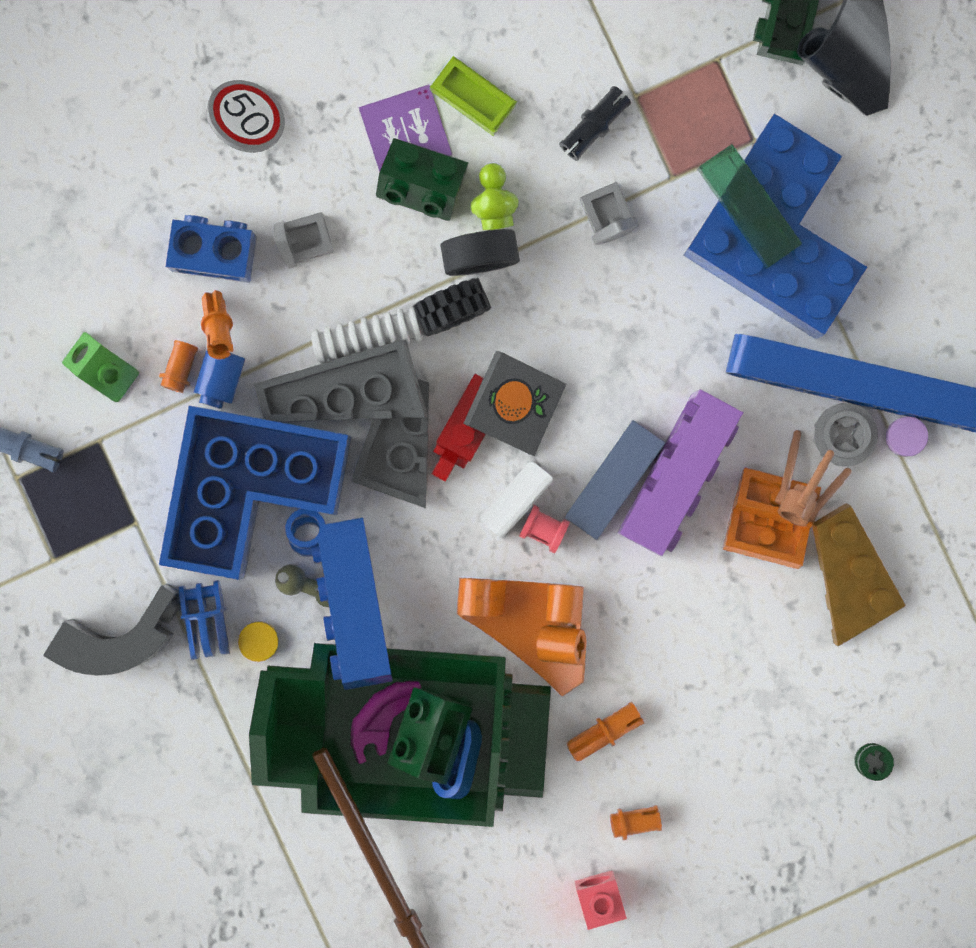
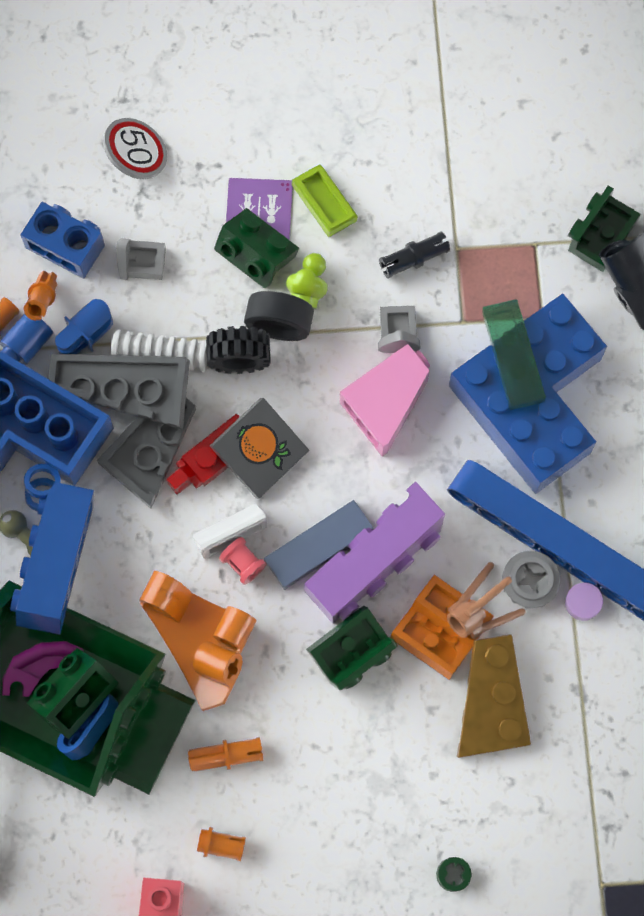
camera: 20 degrees right, 15 degrees down
(277, 341) = (84, 328): none -> blue arm
(626, 295) = (386, 396): none -> bright pink slope
(692, 578) = (352, 649): none -> dark green bracket

